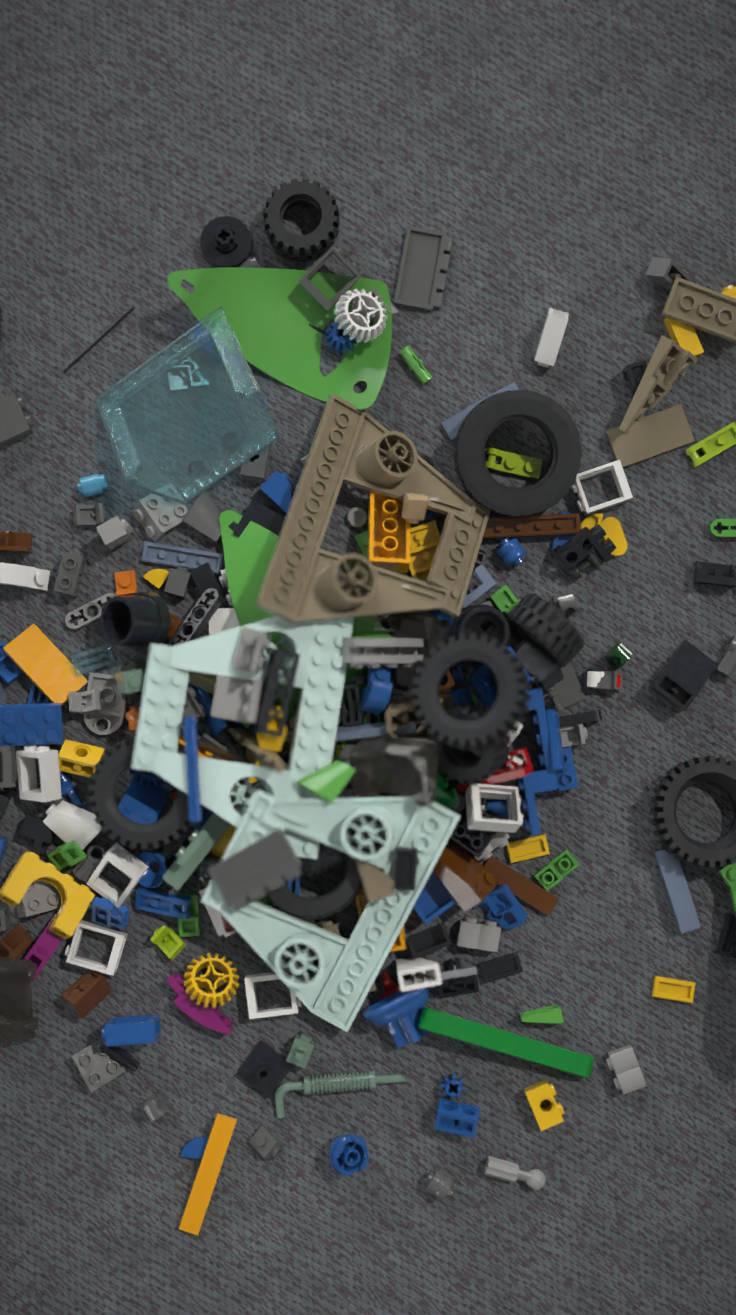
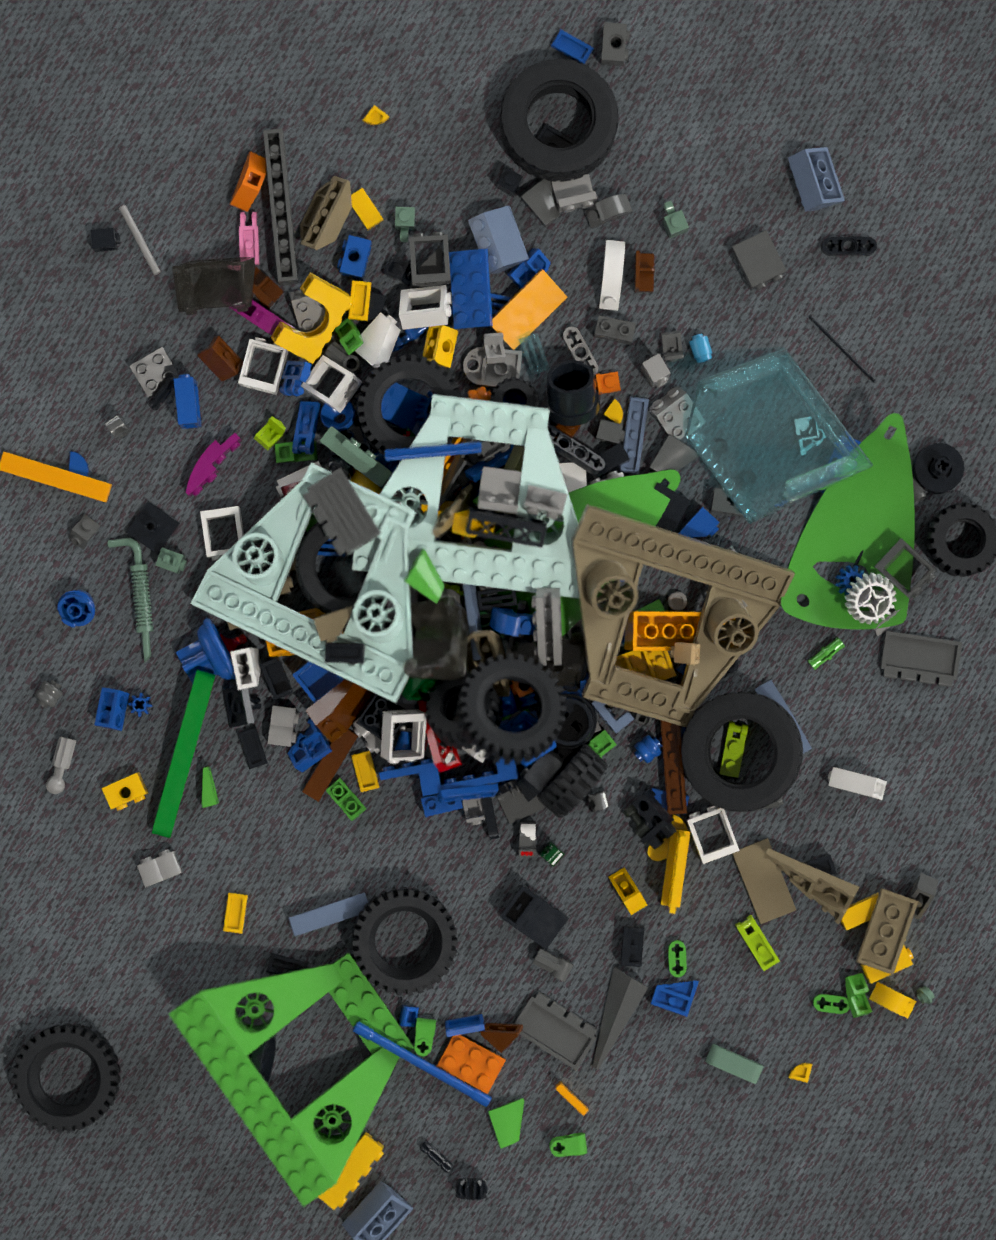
camera: 85 degrees right, 0 degrees up
(29, 842) = (360, 300): none -> yellow tile
(130, 681) = (513, 390): sand green brick -> none
(228, 976) = (239, 489): yellow gear -> none
(638, 527) = (675, 869): none -> yellow fence
(658, 577) = (627, 891): none -> yellow slope

